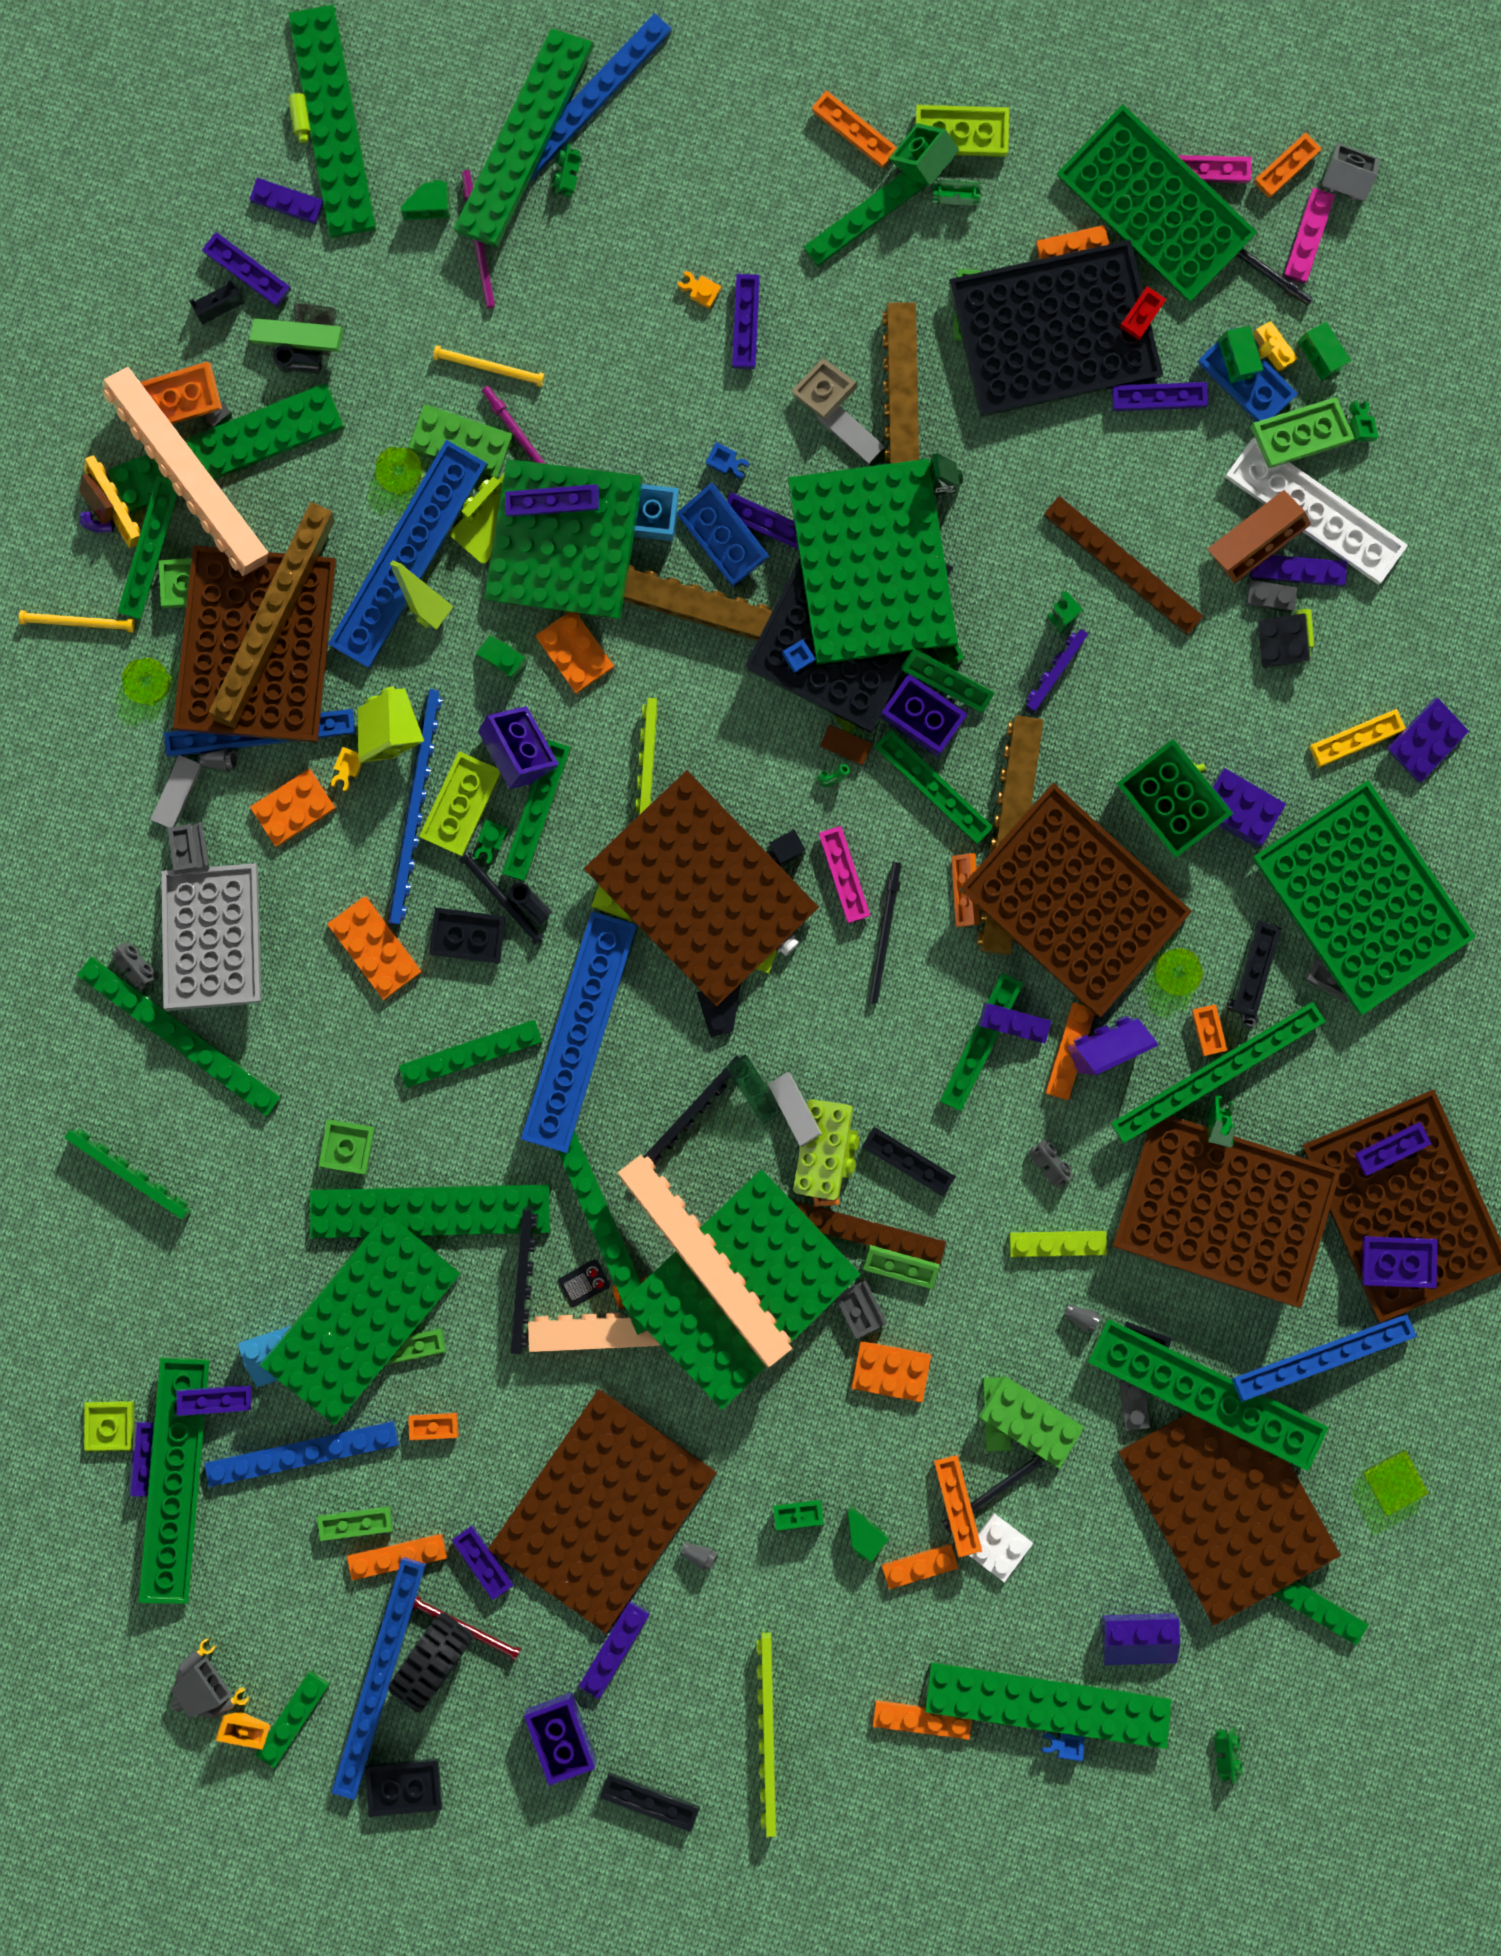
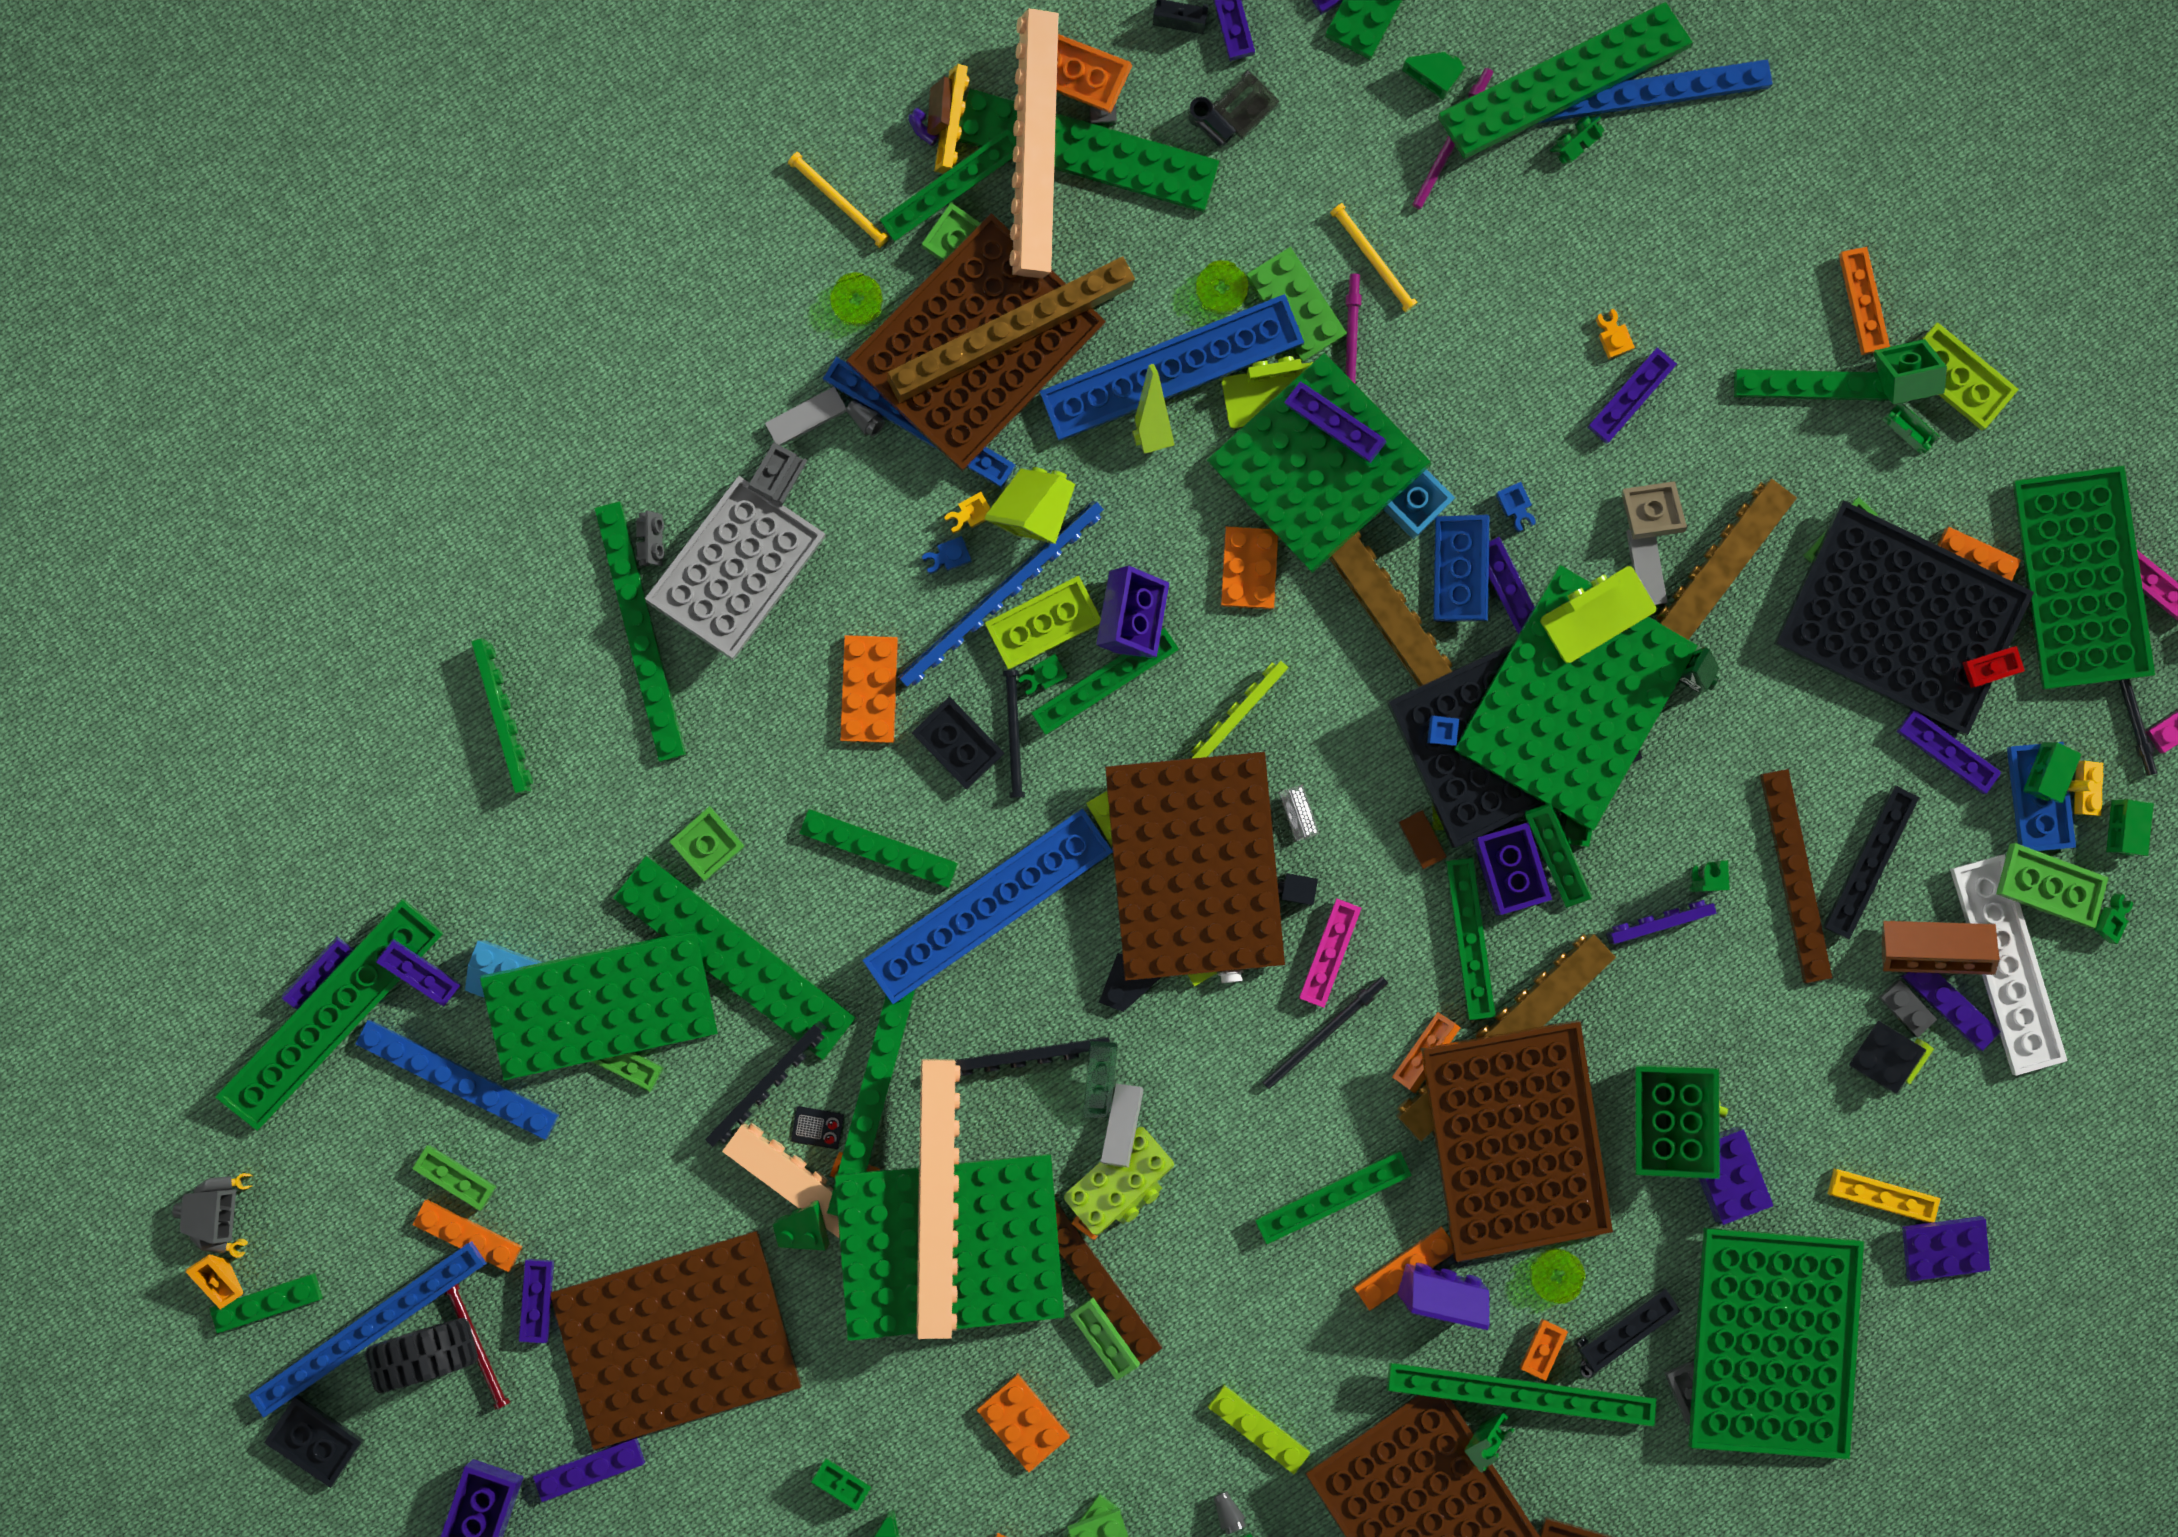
camera: 40 degrees right, 0 degrees up
(108, 1426) = (312, 921): lime tile -> none
(293, 807) = (895, 510): orange plate -> none
(296, 335) = (1227, 99): bright green tile -> none
(357, 807) = (952, 554): none -> blue plate
(433, 1426) = (588, 1148): orange plate -> none
(502, 657) = (1181, 523): green slope -> none
(531, 905) = (1034, 761): black piece -> none
(629, 1360) = (802, 1229): none -> green wing
(699, 1555) = (727, 1448): dark grey cone -> none
(745, 795) = (1298, 813): none -> slope
(836, 777) = (1391, 861): green arm -> none
(840, 490) = (1598, 613): none -> lime bracket
(861, 1309) = (1039, 1348): dark grey plate -> none
(908, 1161) = (1185, 1251): black plate -> none
(1014, 1023) = (1376, 1205): dark purple plate -> none
(1058, 1169) = (1311, 1343): dark grey hinge -> none
(1166, 515) = (1870, 862): none -> black plate

